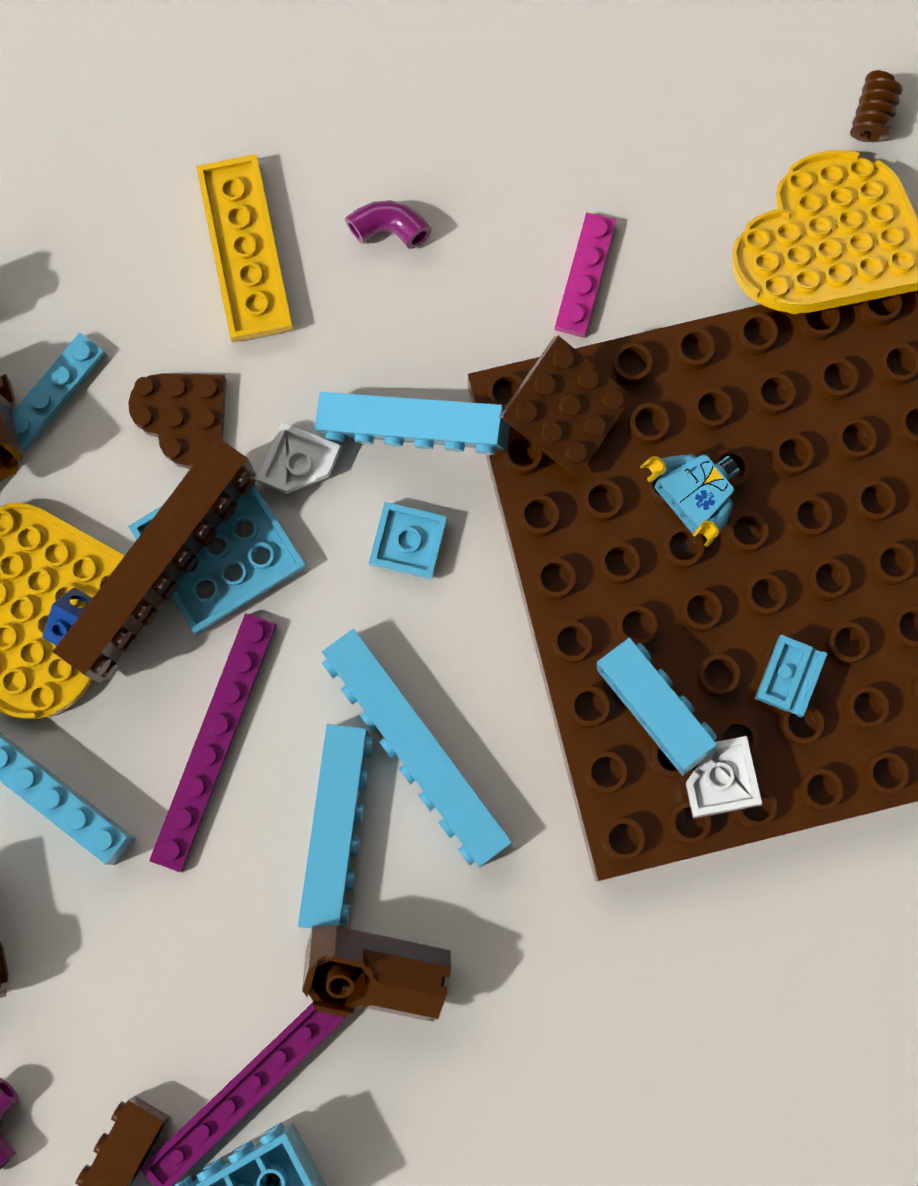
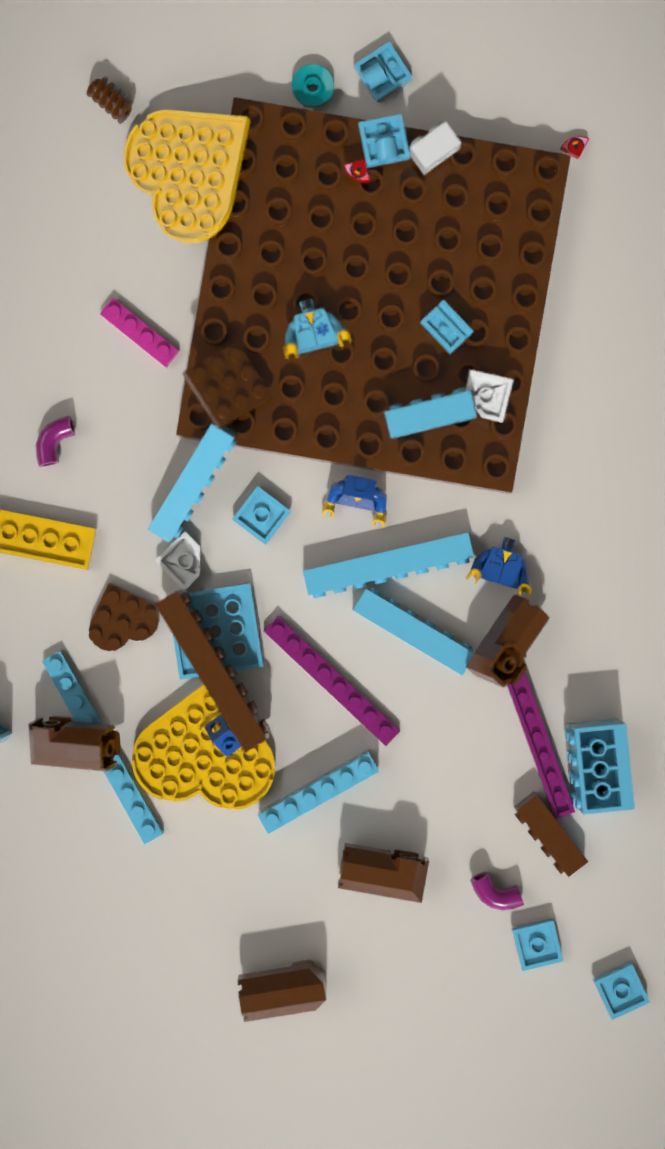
camera: 70 degrees left, 10 degrees up
(482, 916) = (502, 567): none -> blue torso
(497, 660) = (357, 493): none -> blue torso

